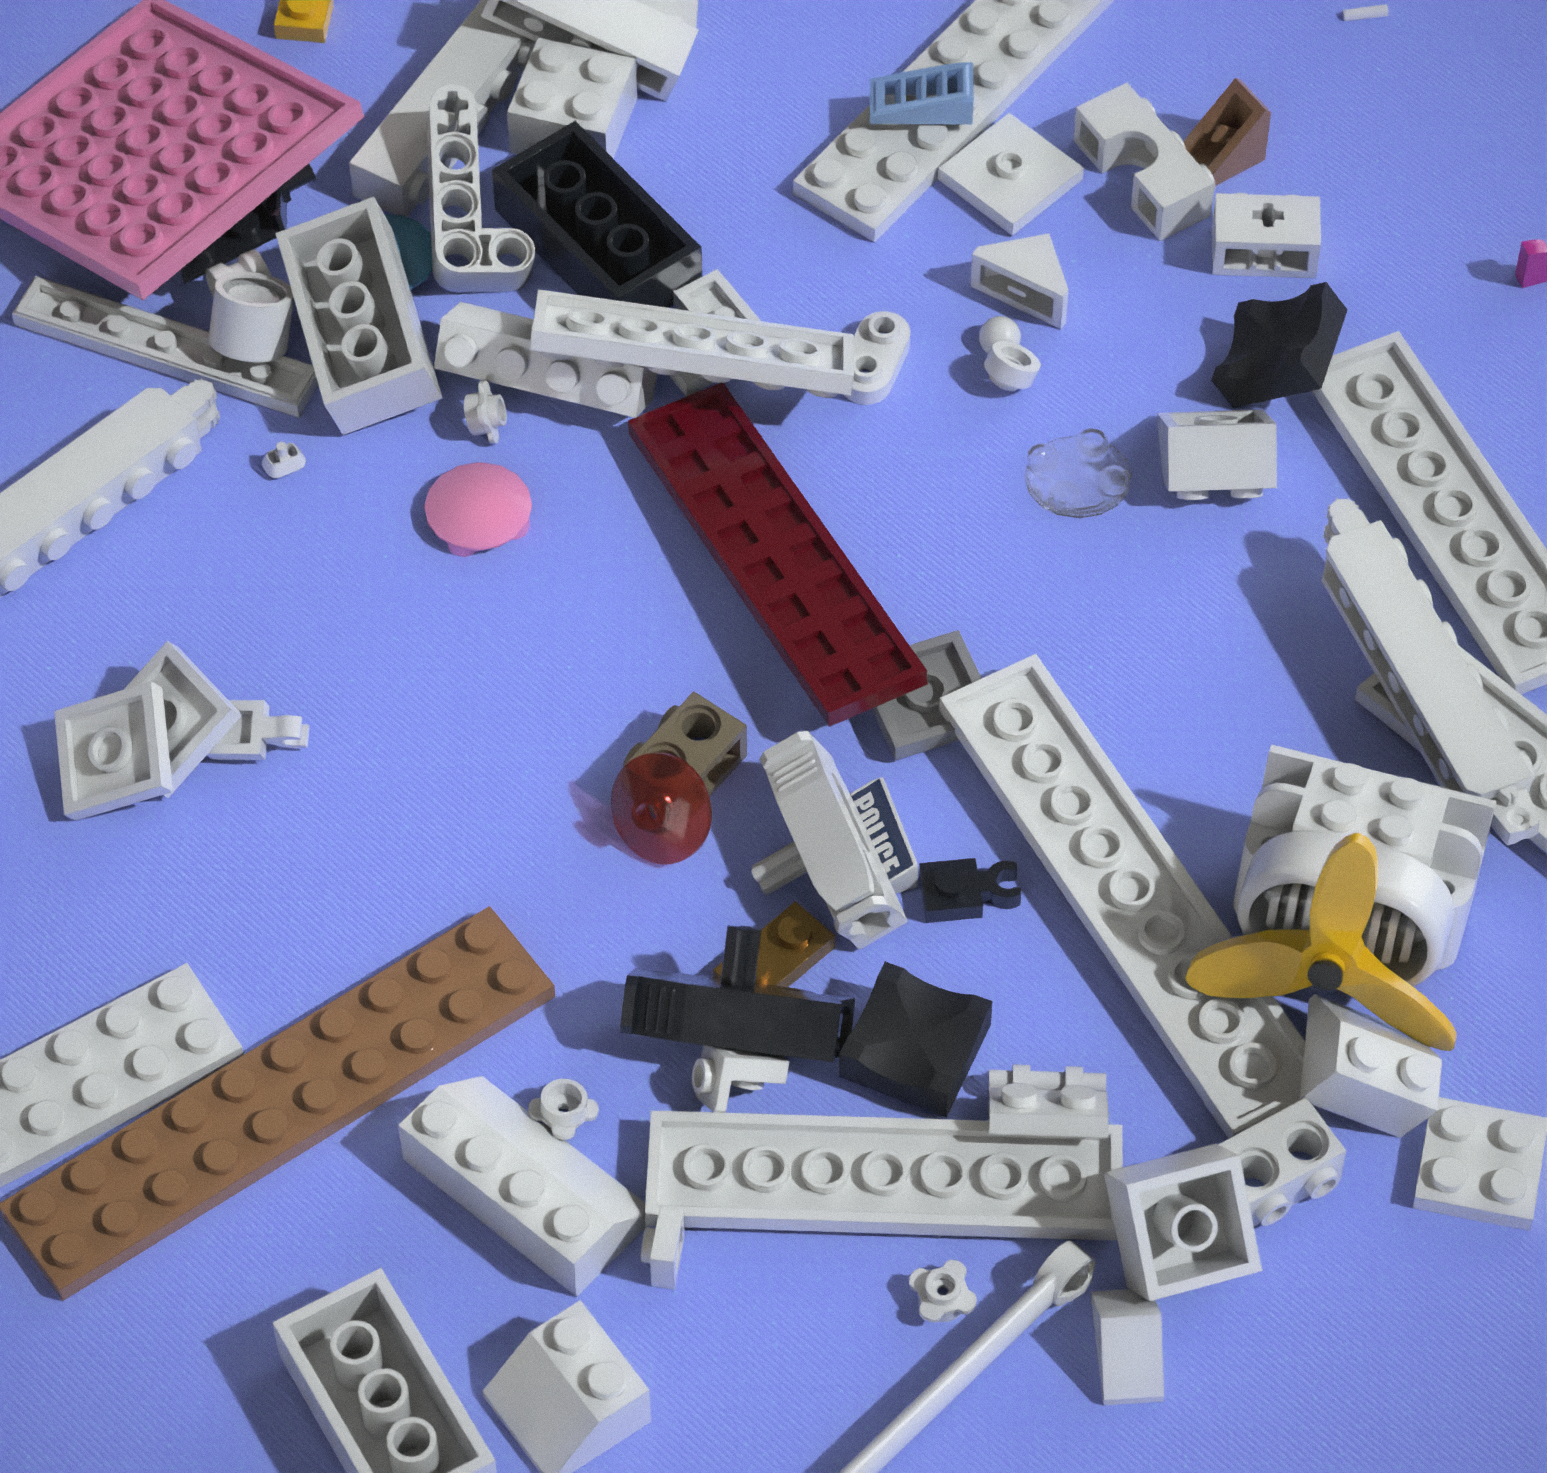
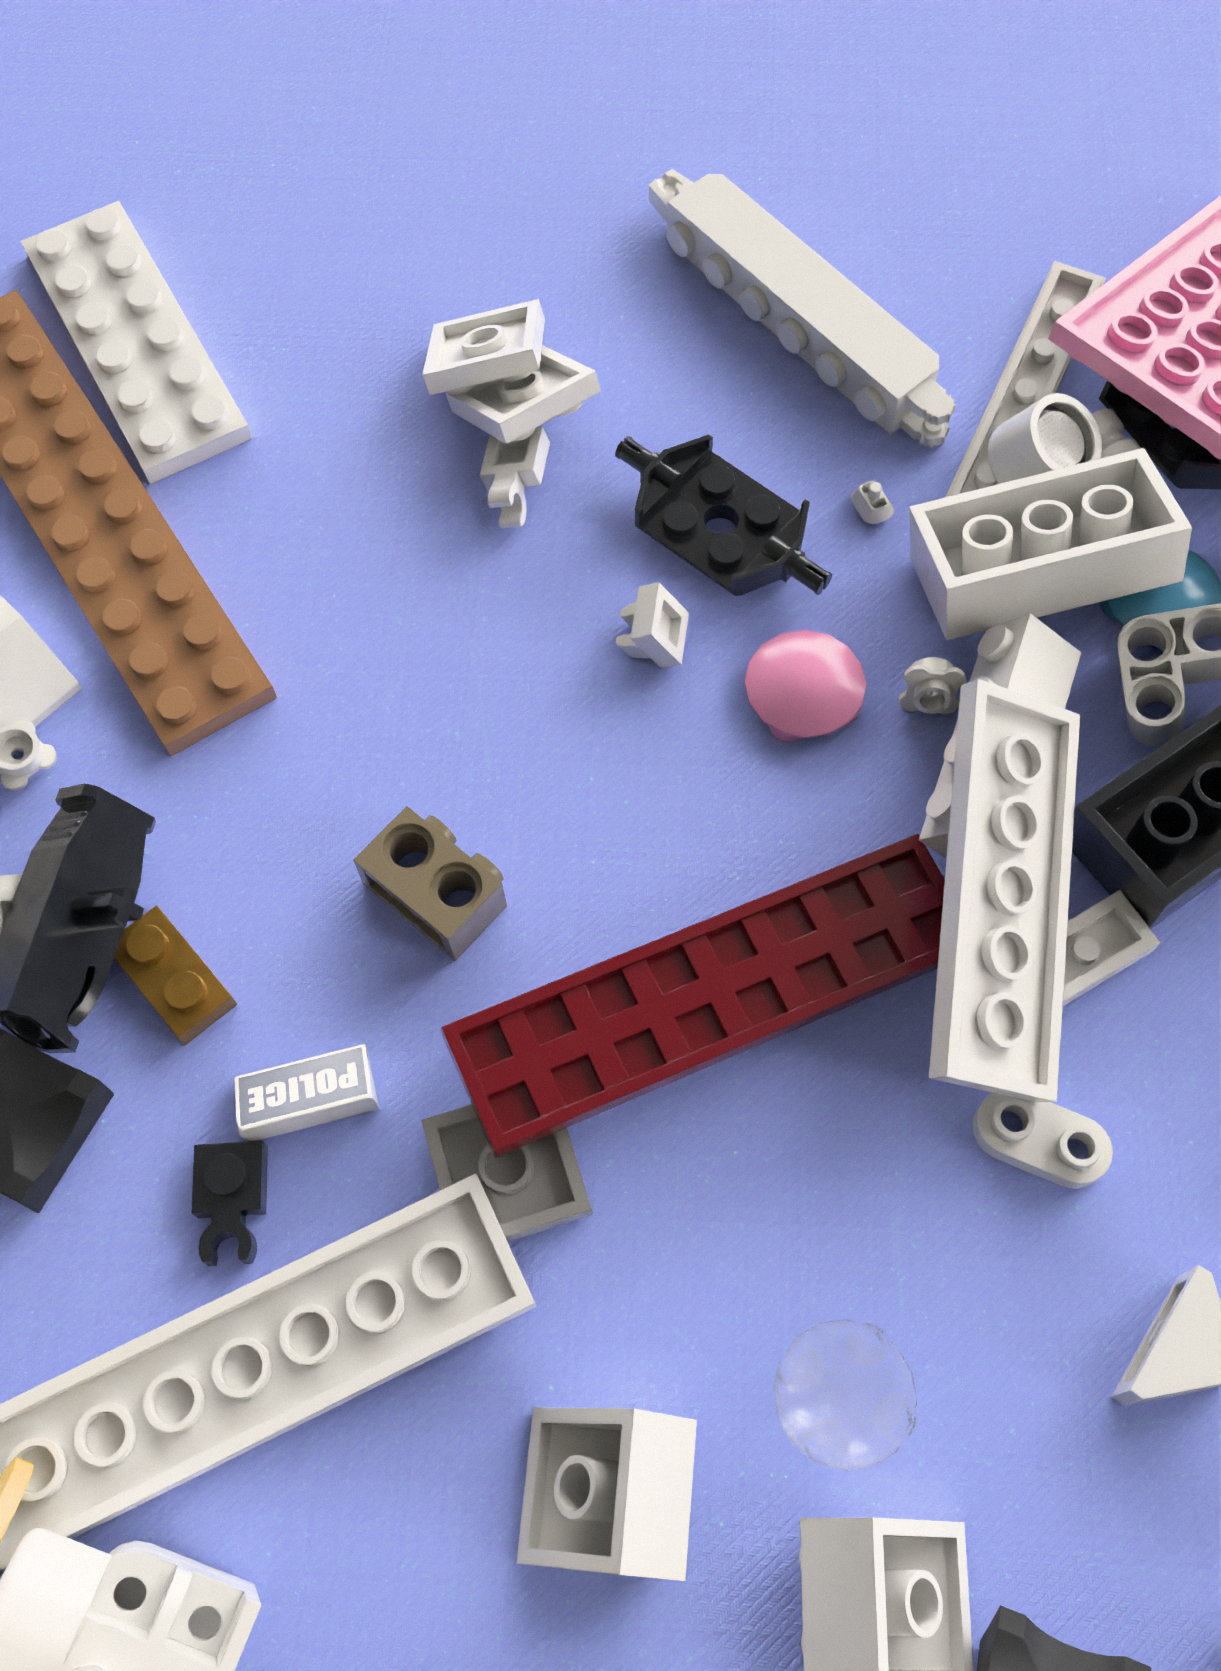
camera: 95 degrees right, 10 degrees up
(324, 533) = (694, 485): none -> black plate
(429, 608) = (656, 626): none -> white tile
(679, 805) = (350, 844): clear red dish -> none
(827, 842) = (276, 1030): white piece -> none
(1007, 361) = (1080, 1306): white plate -> none
(1163, 614) = (608, 1491): none -> white slope

